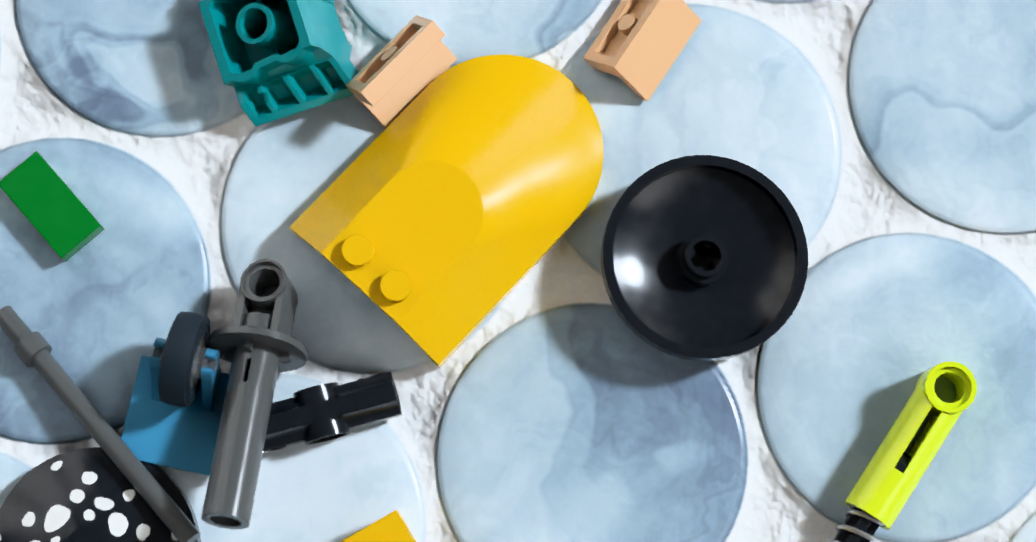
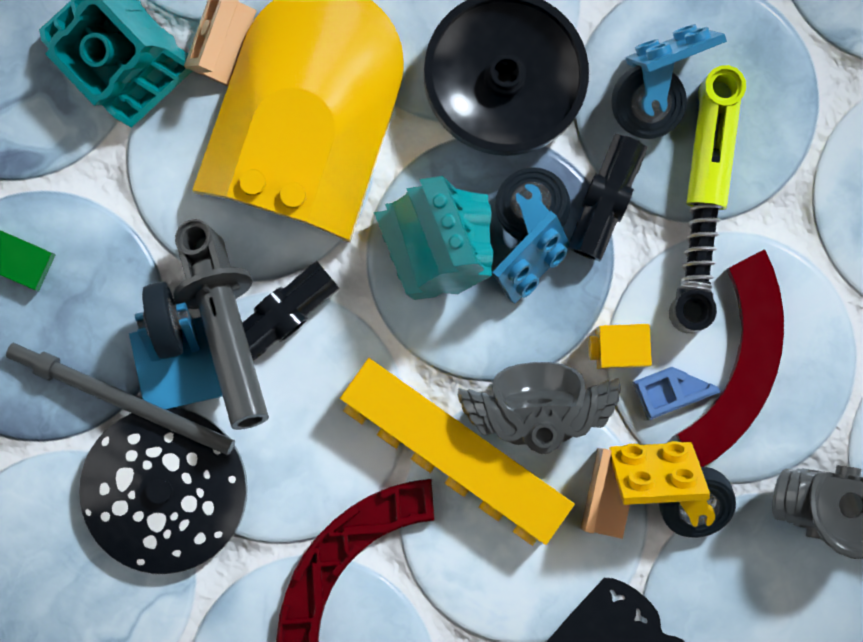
camera: 30 degrees left, 5 degrees up
(538, 411) = (438, 238): none -> teal slope
(664, 428) = (534, 210): none -> plate
(757, 453) = (607, 197): none -> black piece
(857, 358) = (650, 95): none -> plate

